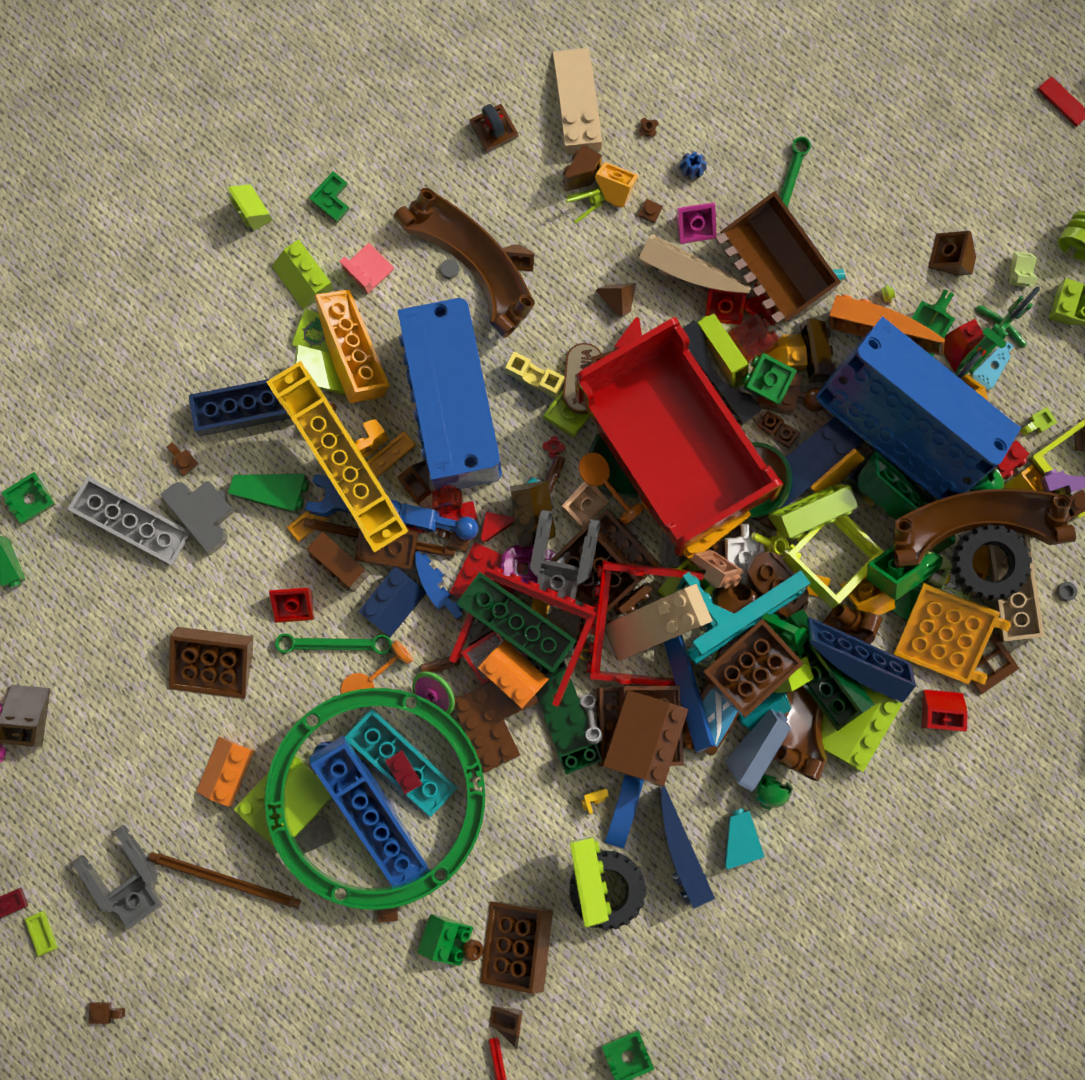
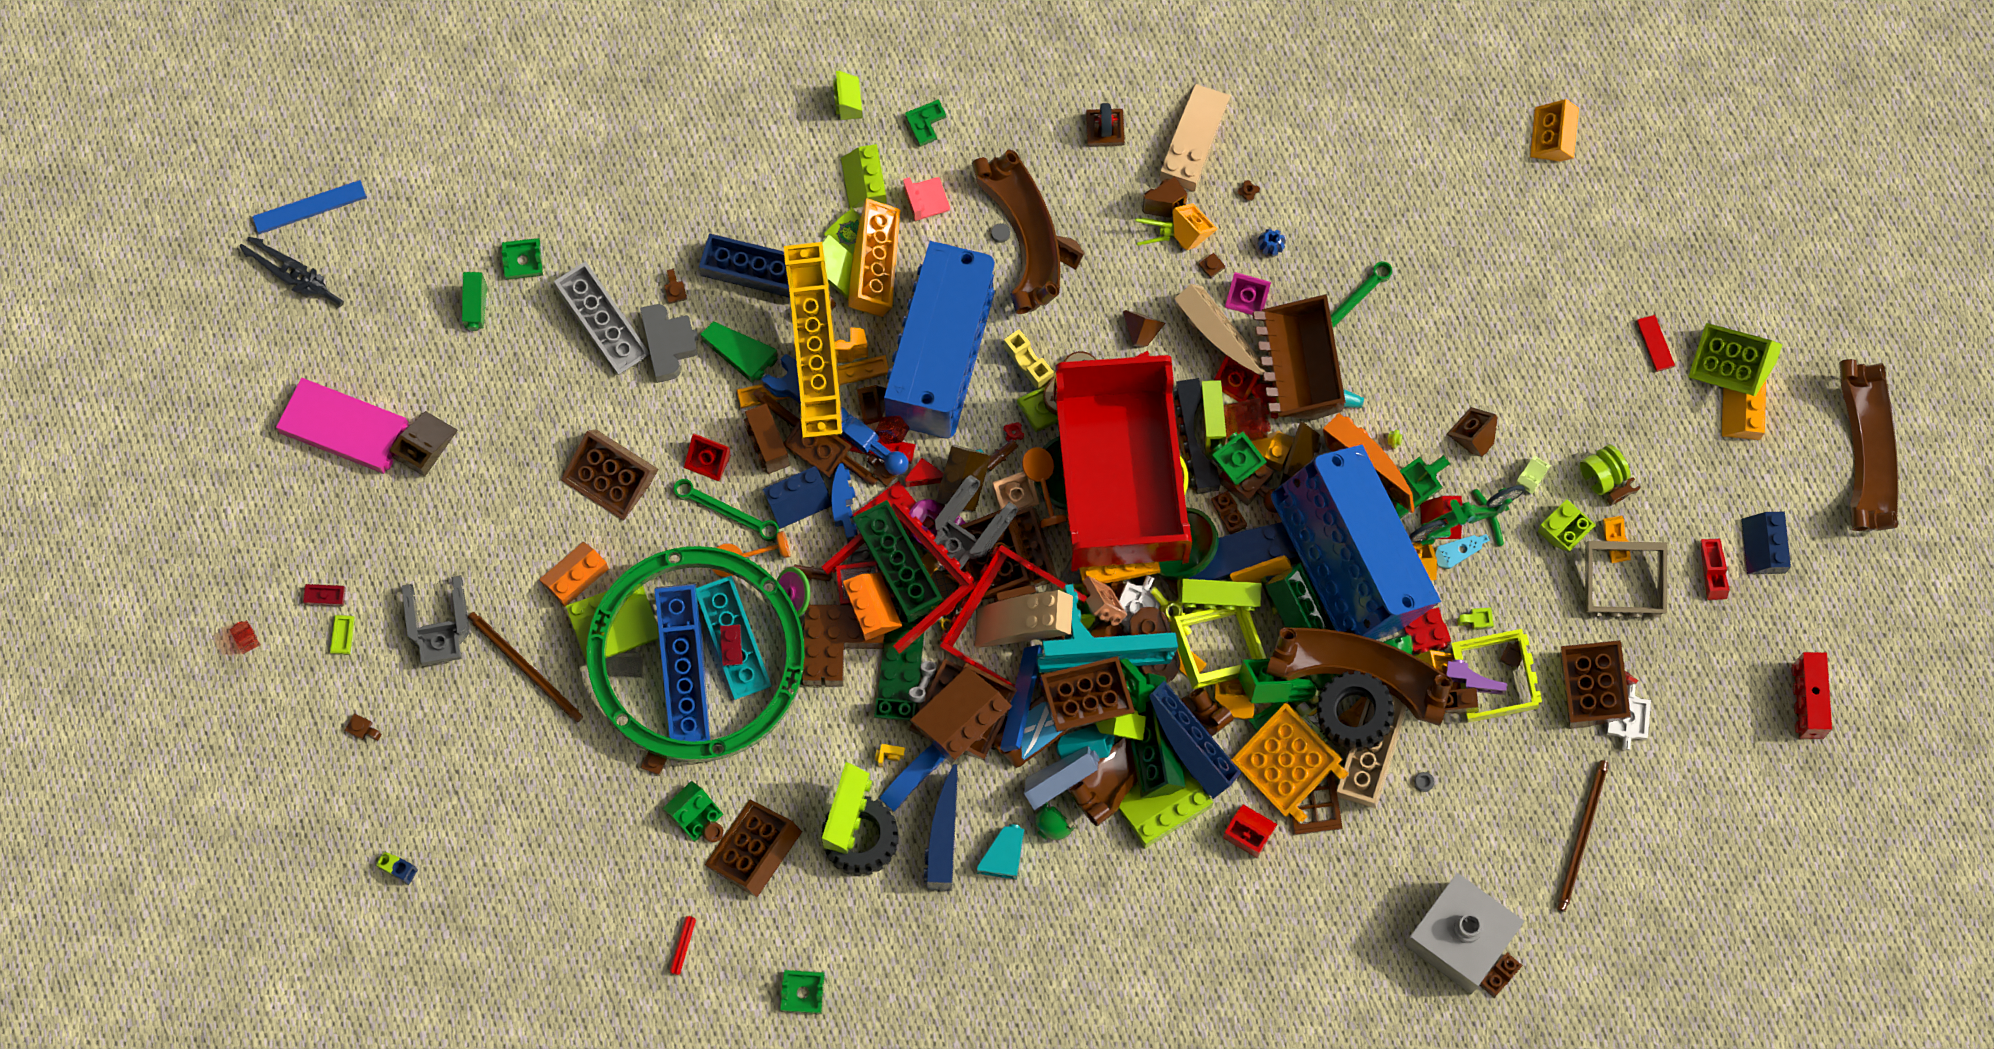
camera: 25 degrees right, 10 degrees down
(507, 1022) = (710, 910): reddish brown slope -> none

